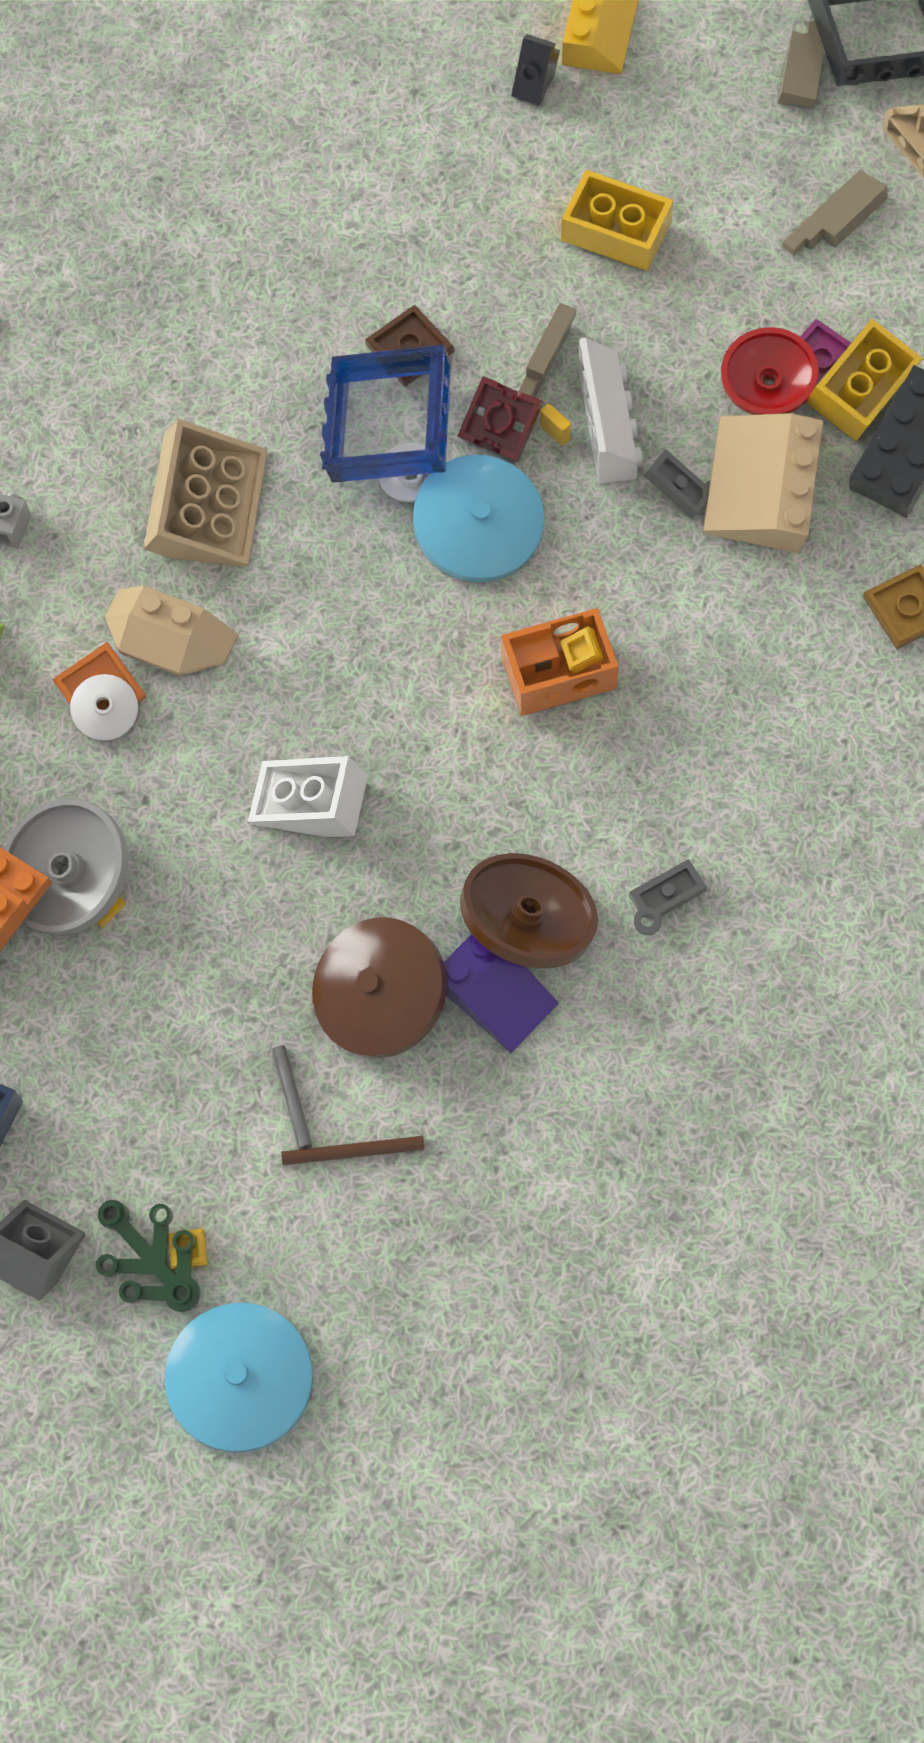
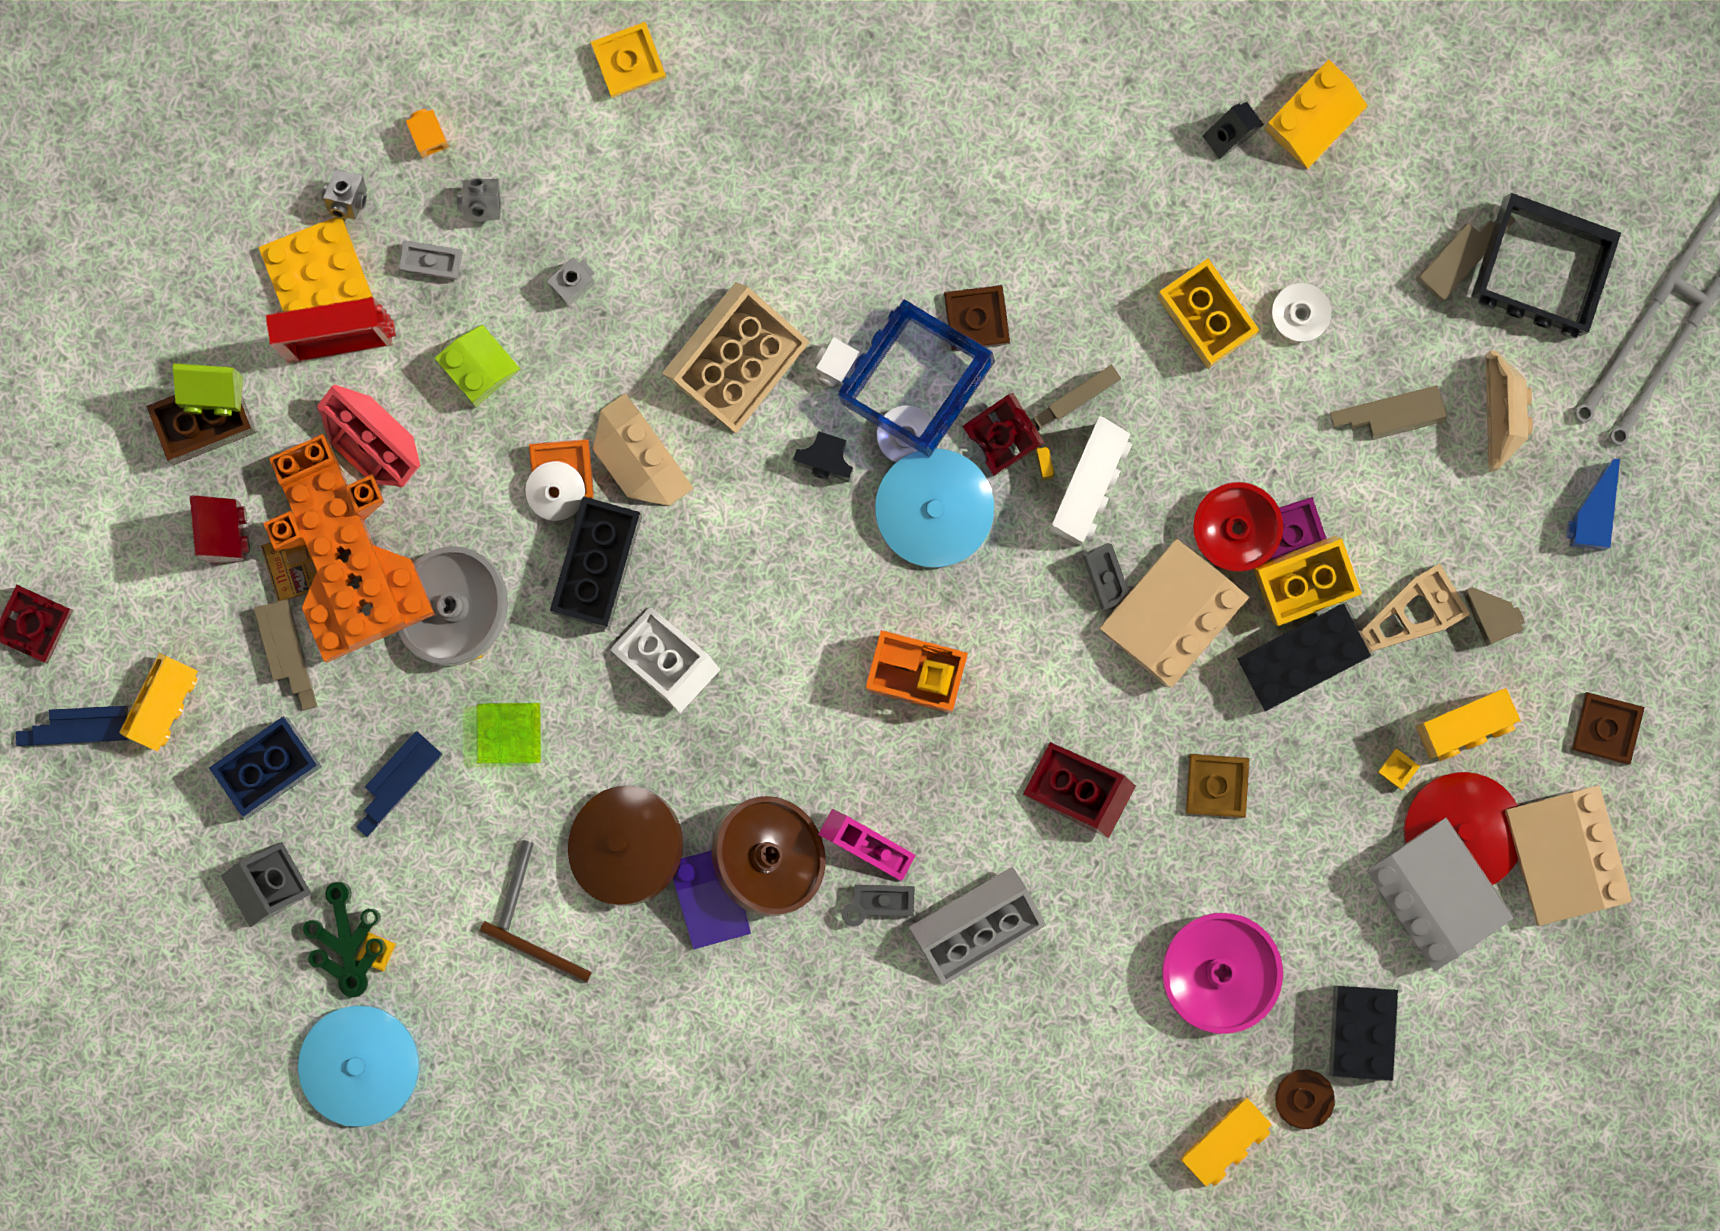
camera: 30 degrees right, 15 degrees up
(108, 1067) = (397, 779): none -> dark blue piece
(184, 746) = (596, 563): none -> black brick
(194, 956) = (508, 733): none -> clear neon green slope
(303, 448) = (835, 362): none -> white brick
(347, 533) = (825, 457): none -> black brick
(614, 848) = (866, 844): none -> dark pink slope
(698, 167) = (1303, 297): none -> white dish
(774, 859) = (977, 926): none -> light grey slope
(785, 680) = (1080, 789): none -> dark red slope

